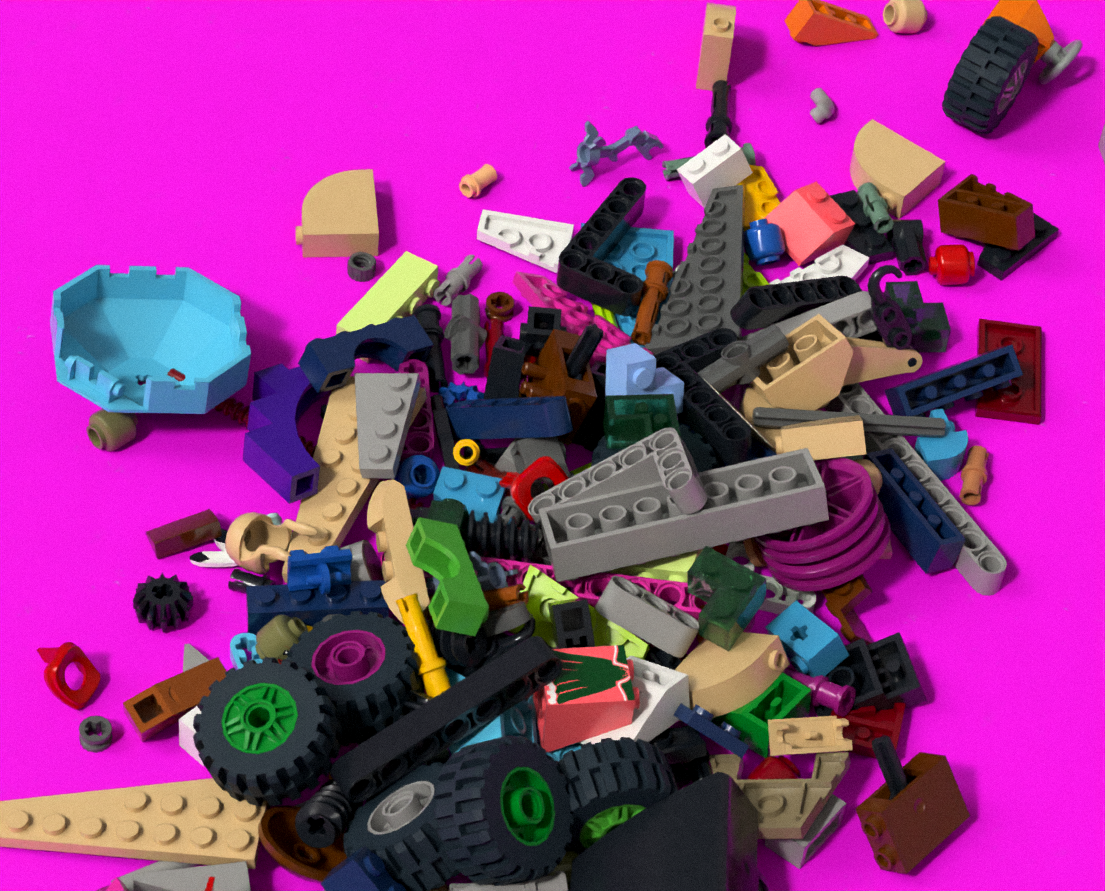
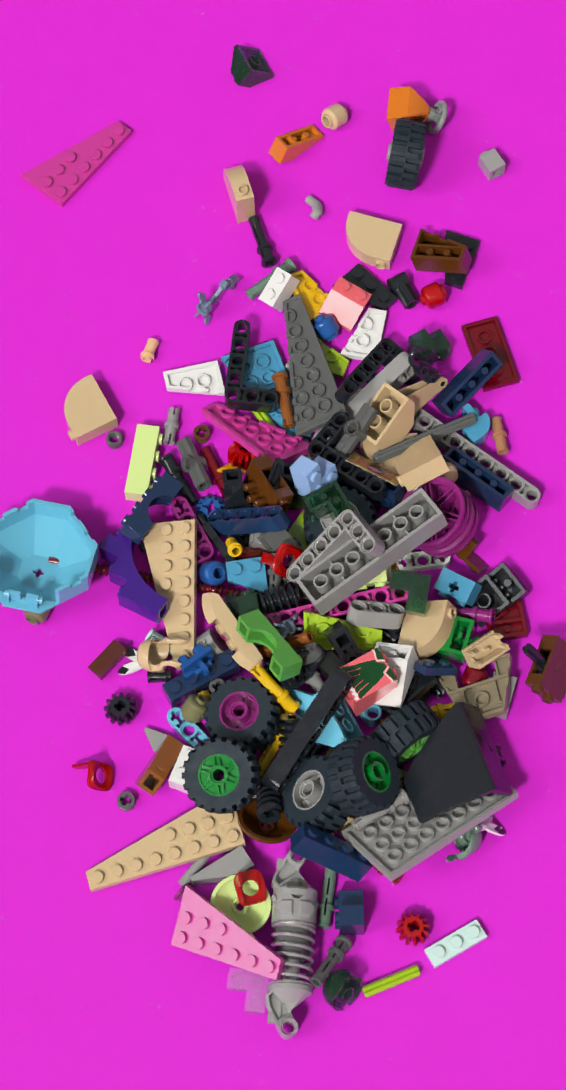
camera: 15 degrees left, 20 degrees up
(383, 420) = (183, 548): light grey wing -> none
(539, 327) = (241, 451): black brick -> none
(875, 207) = (376, 274): sand green pin -> none

